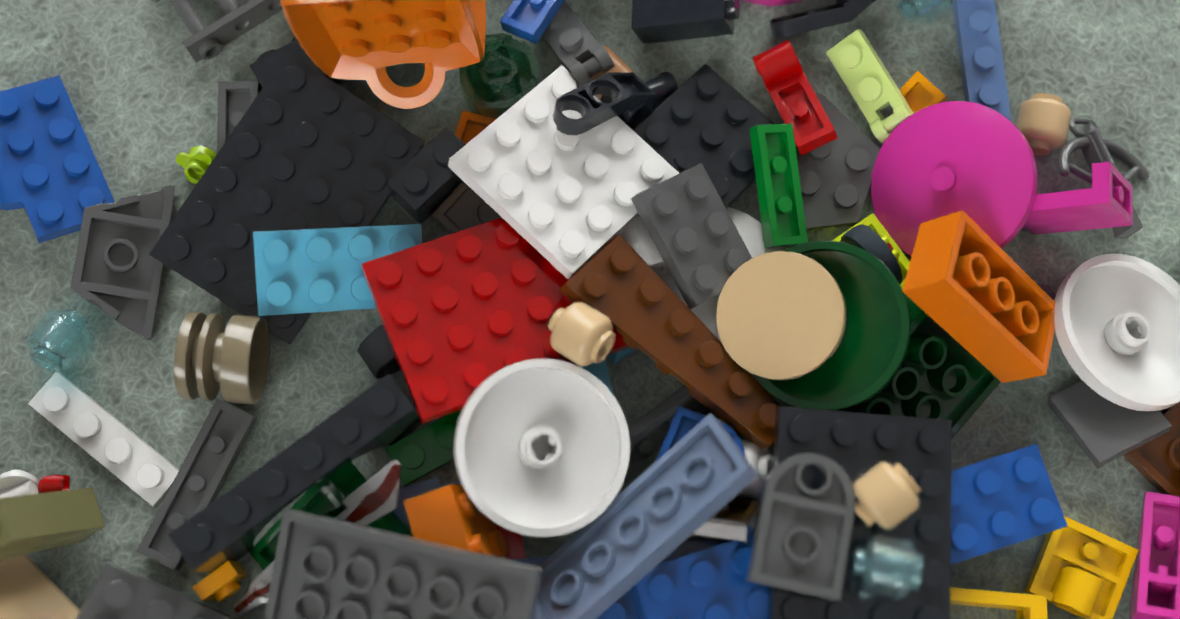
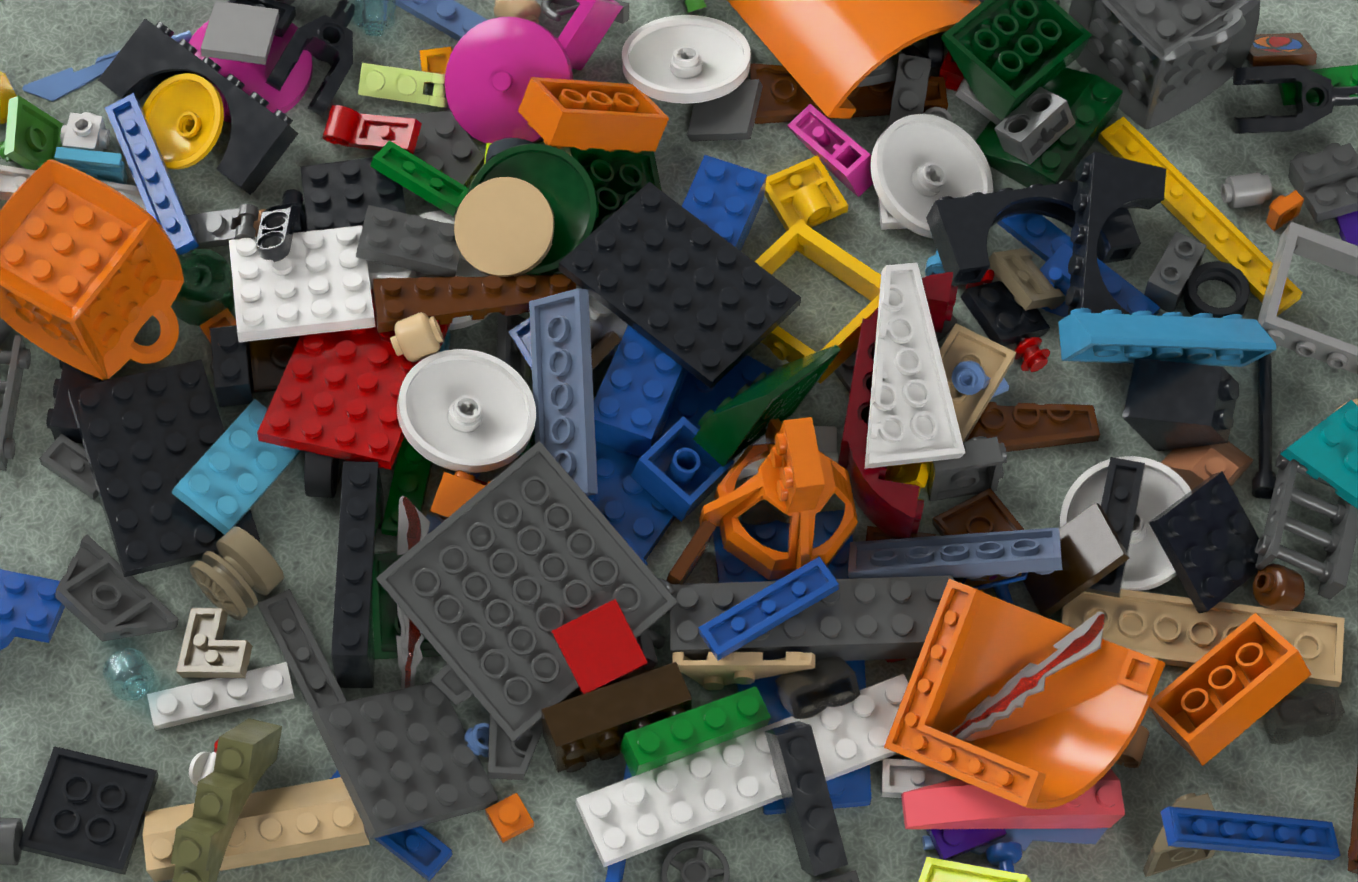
camera: 50 degrees left, 15 degrees down
(130, 395) = (206, 653): none -> plate
(195, 162) = (79, 507): lime plate -> none
(221, 583) = (382, 679): light orange plate -> none
(802, 531) = (641, 296): dark grey plate -> none
(886, 495) = (659, 238): tan head -> none
(889, 566) = (701, 266): clear light blue head -> none

